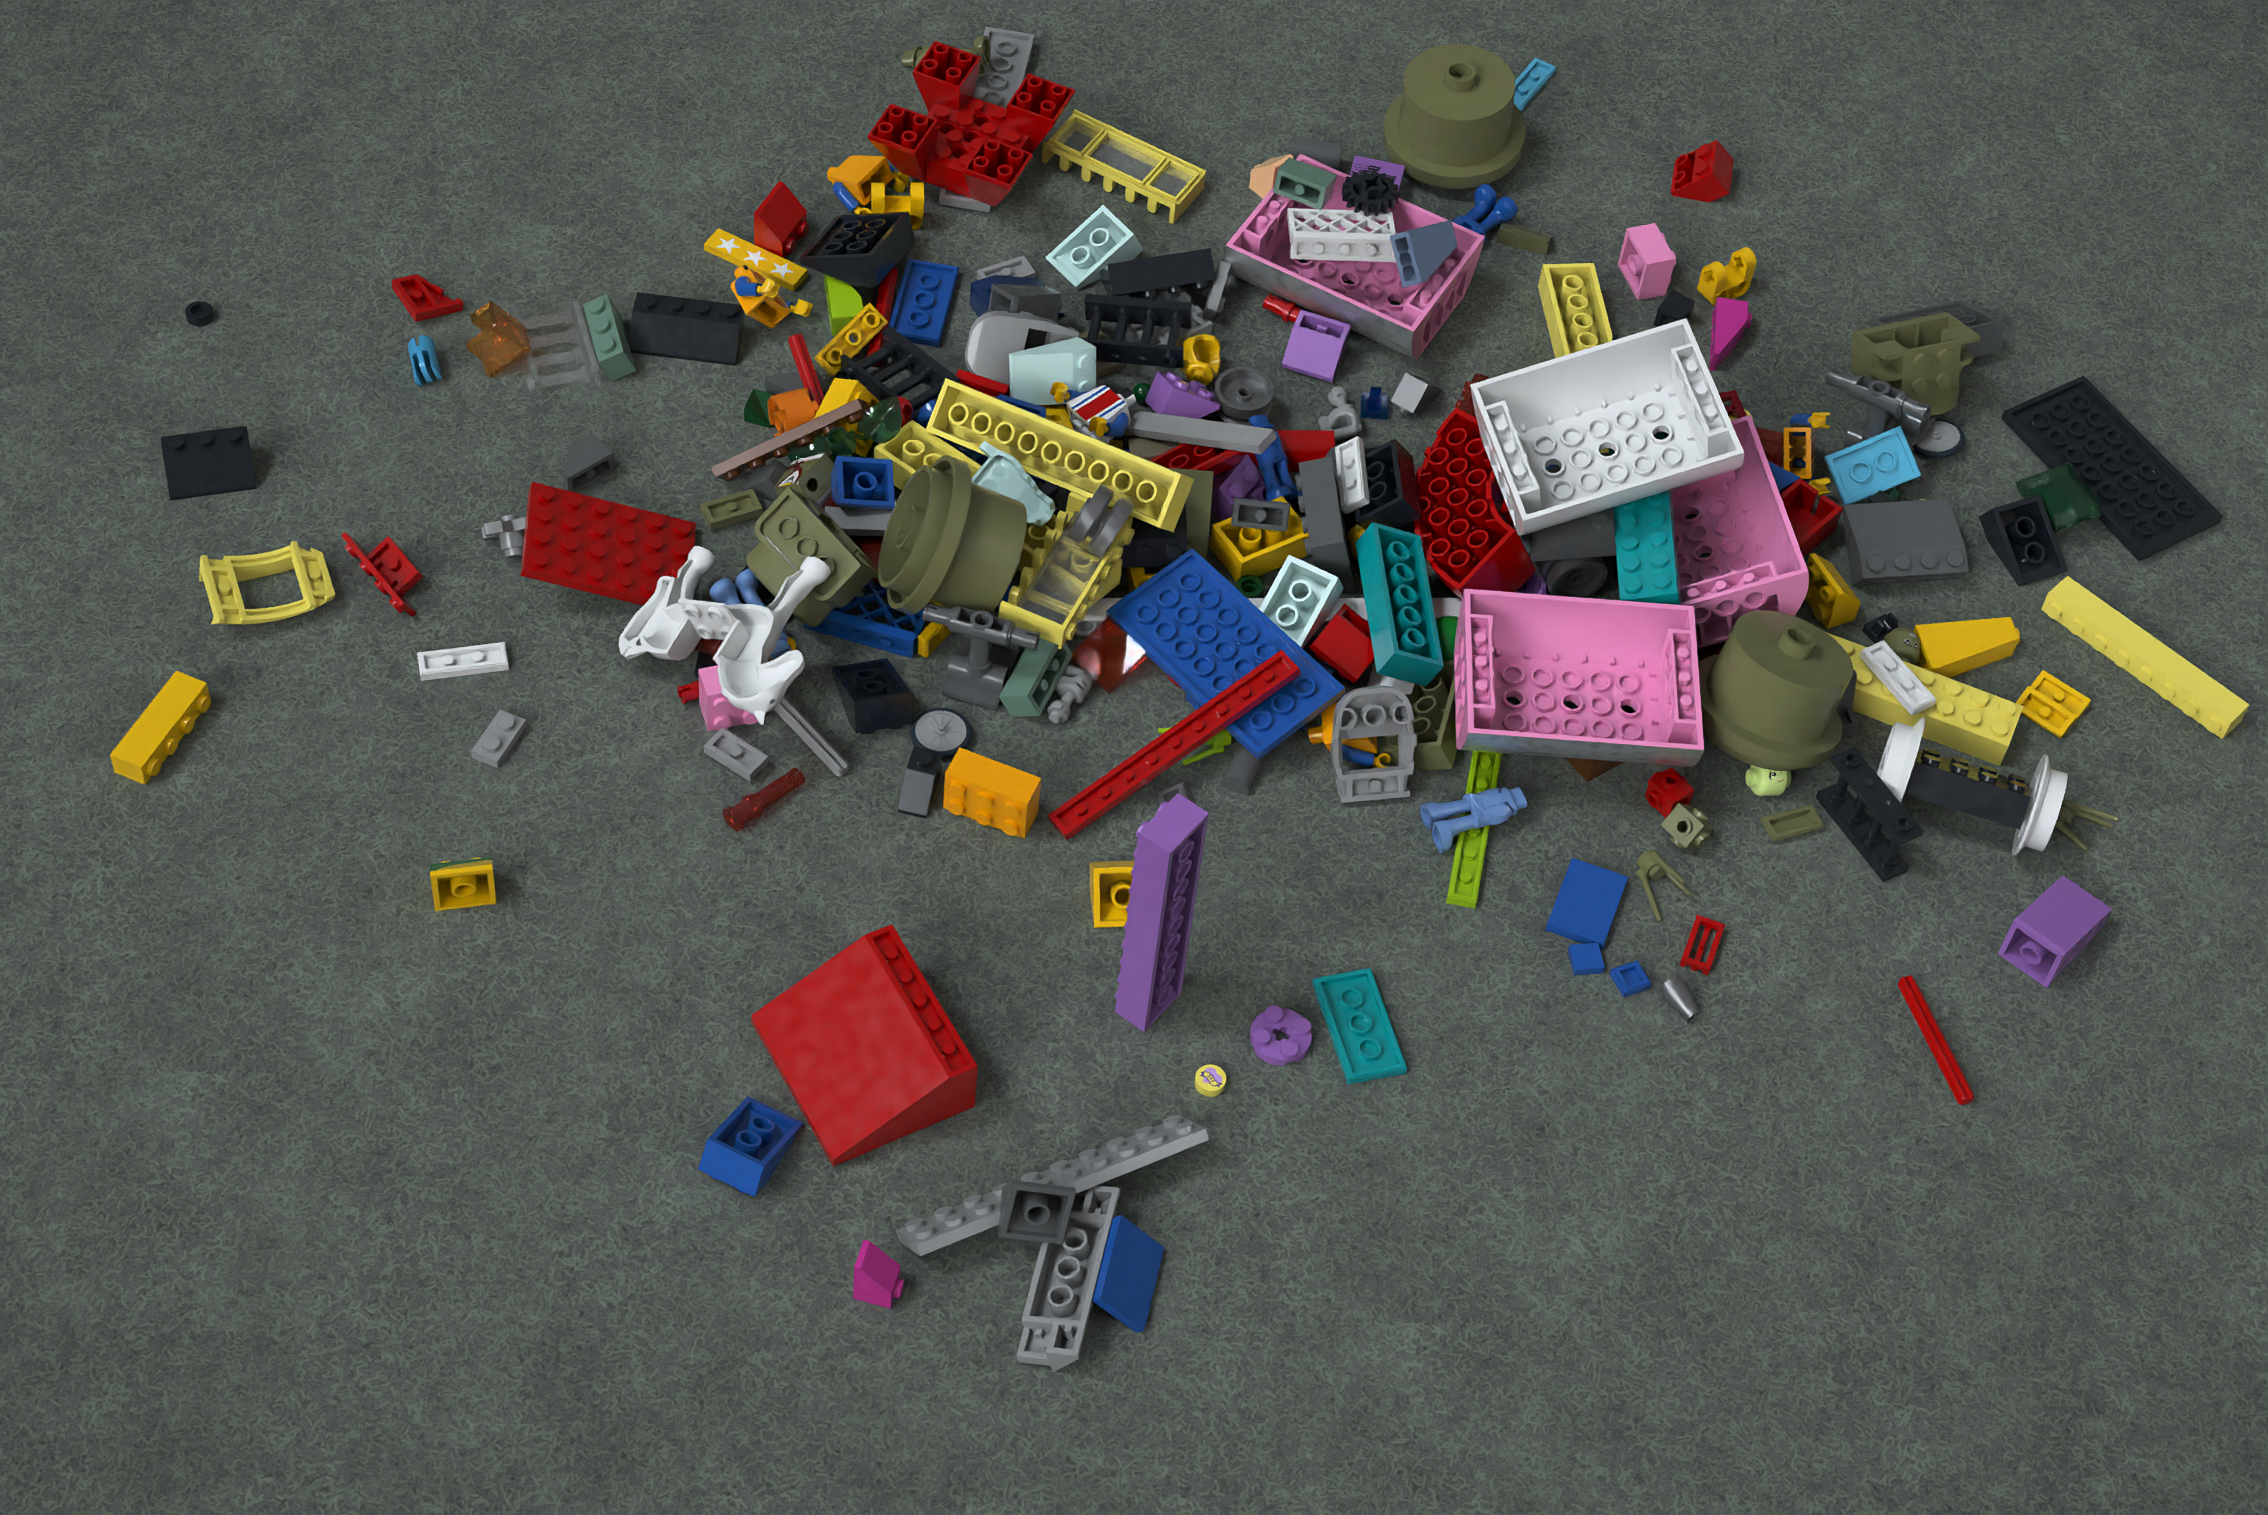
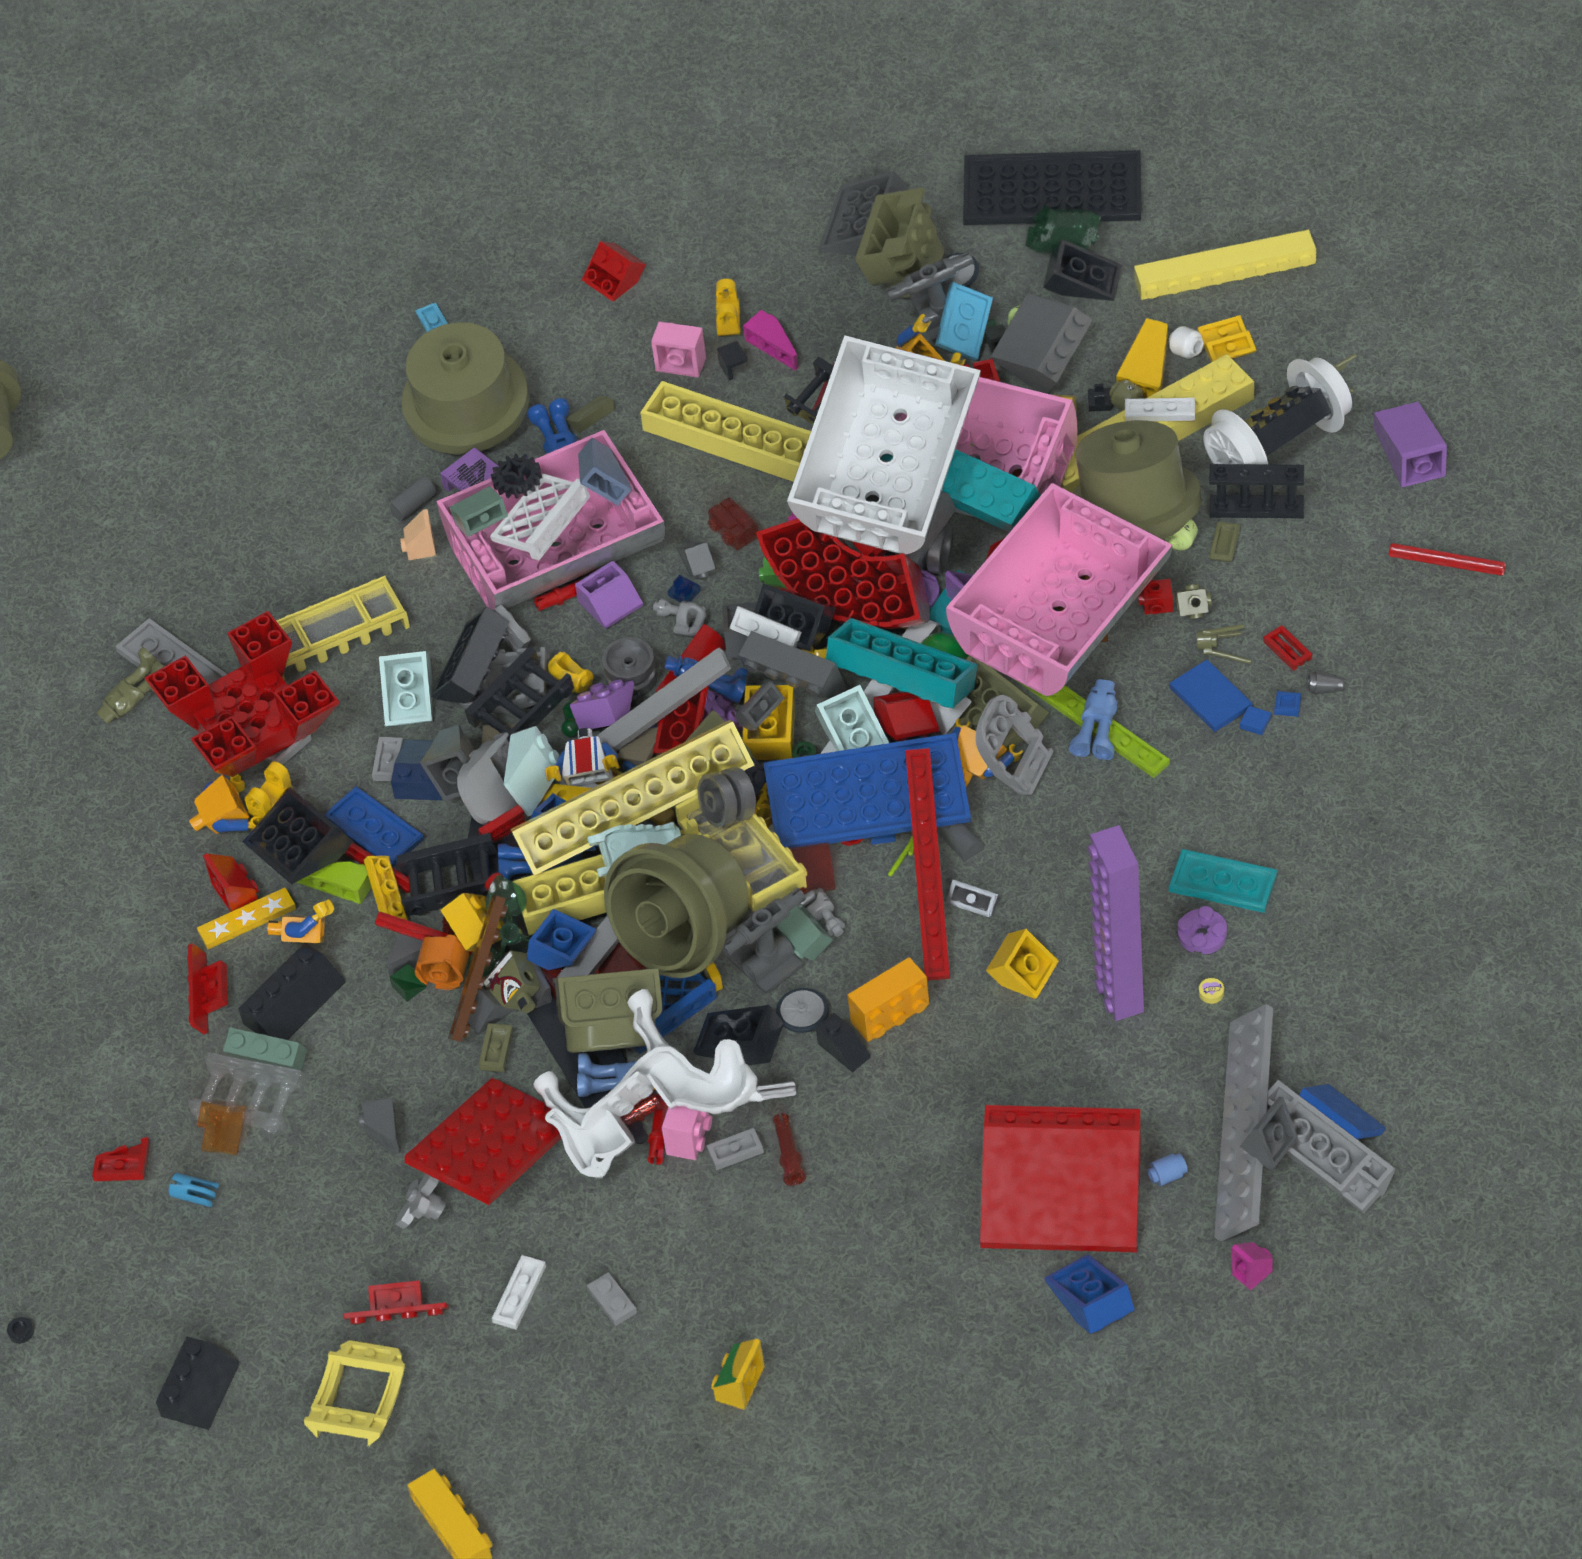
camera: 45 degrees left, 0 degrees up
(653, 263) = (206, 987): none -> red bracket
(951, 1143) = (1167, 1169): none -> medium blue brick
(2014, 668) = (1185, 342): none -> white head

